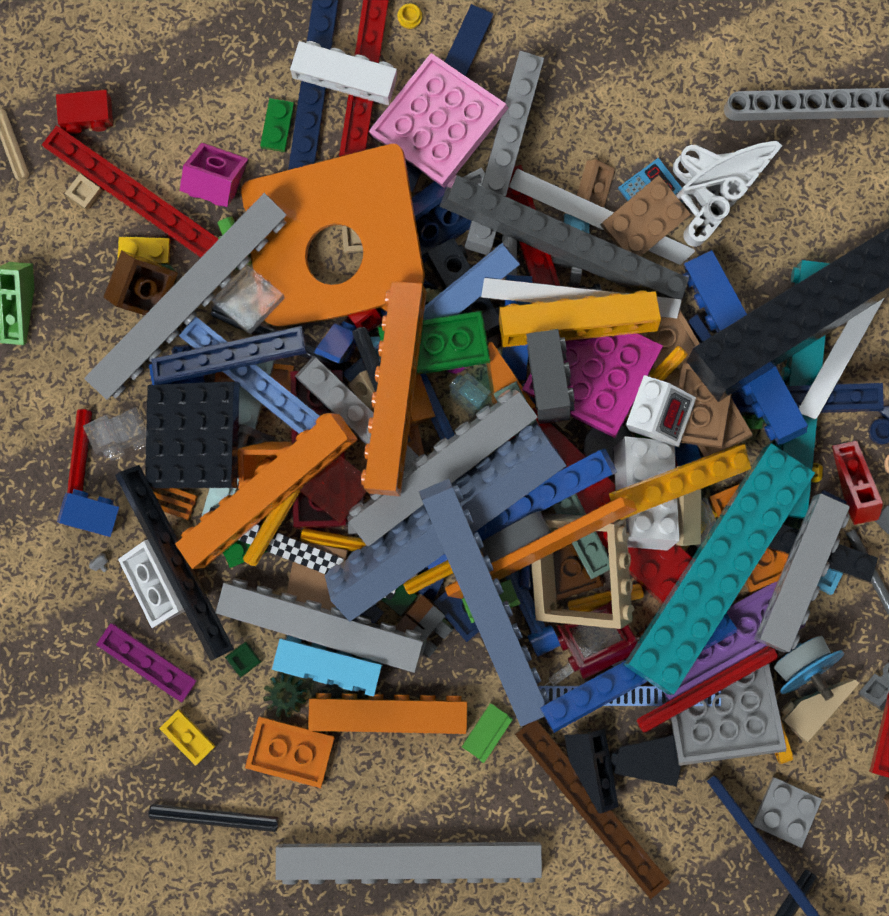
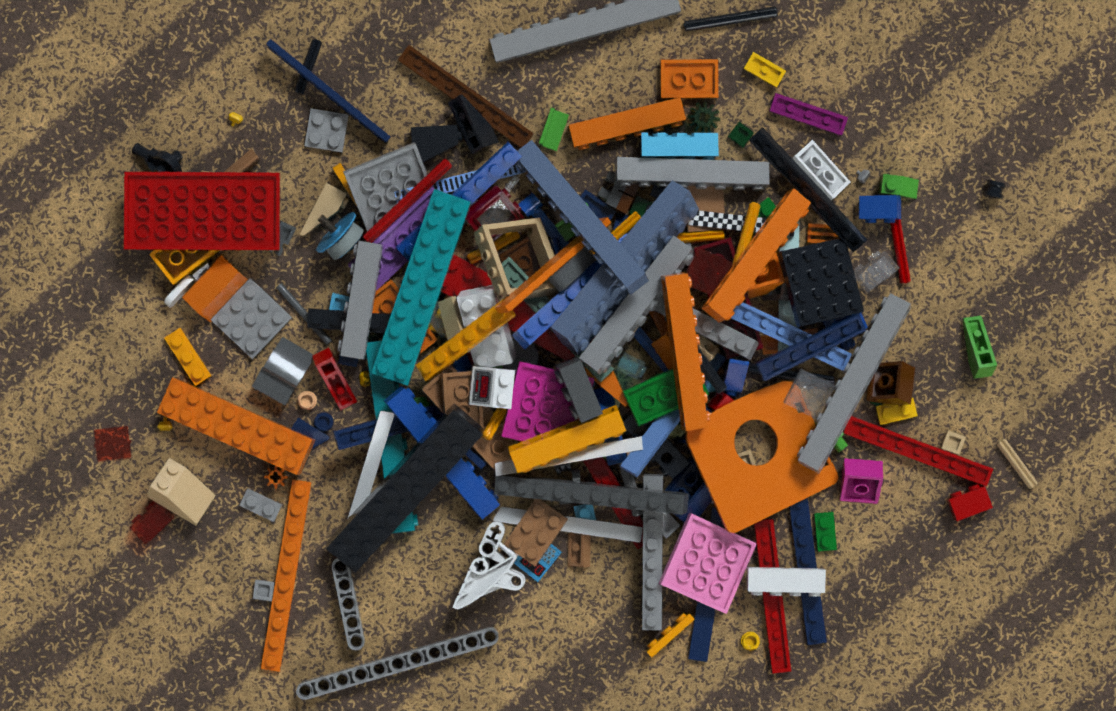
camera: 170 degrees right, 5 degrees up
(57, 536) = (898, 185): none -> bright green slope
(509, 49) = (669, 633): none -> light orange plate

